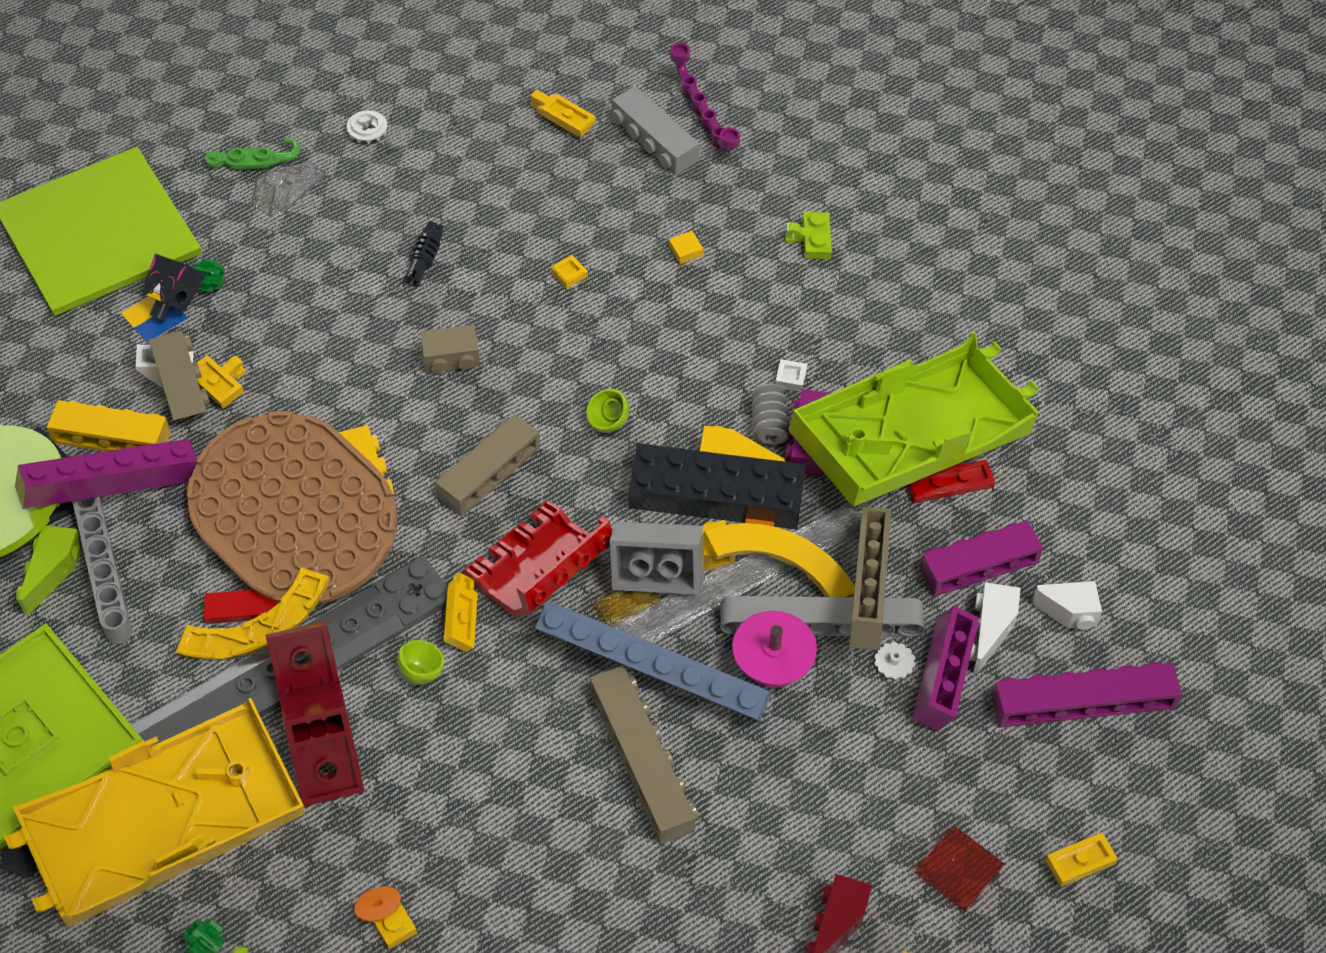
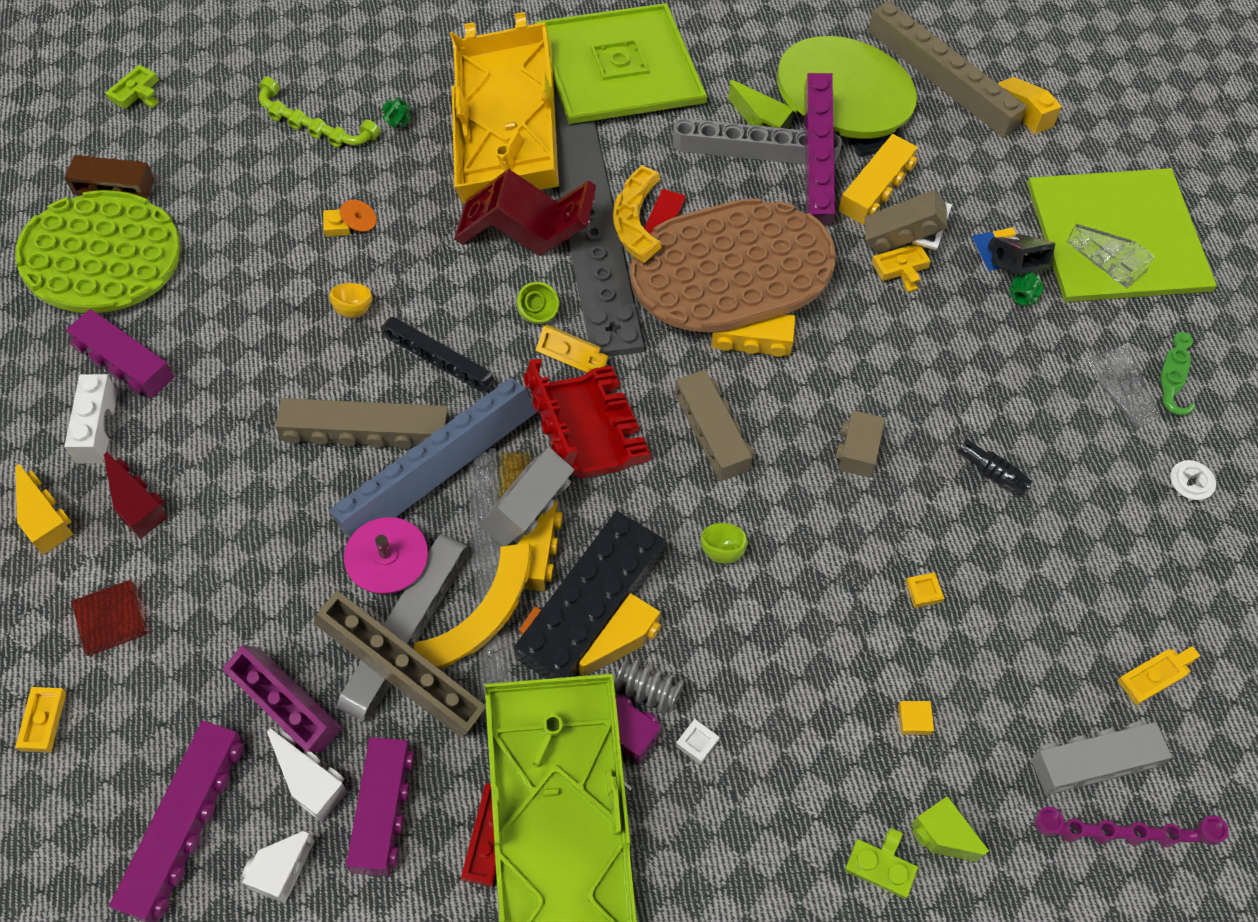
camera: 115 degrees right, 5 degrees up
(142, 212) = (1115, 255): none -> clear slope
(500, 841) = (350, 299): none -> yellow piece
(525, 731) = (438, 354): none -> black beam
(766, 202) = (948, 833): none -> lime slope
(894, 661) = (329, 671): white piece -> none

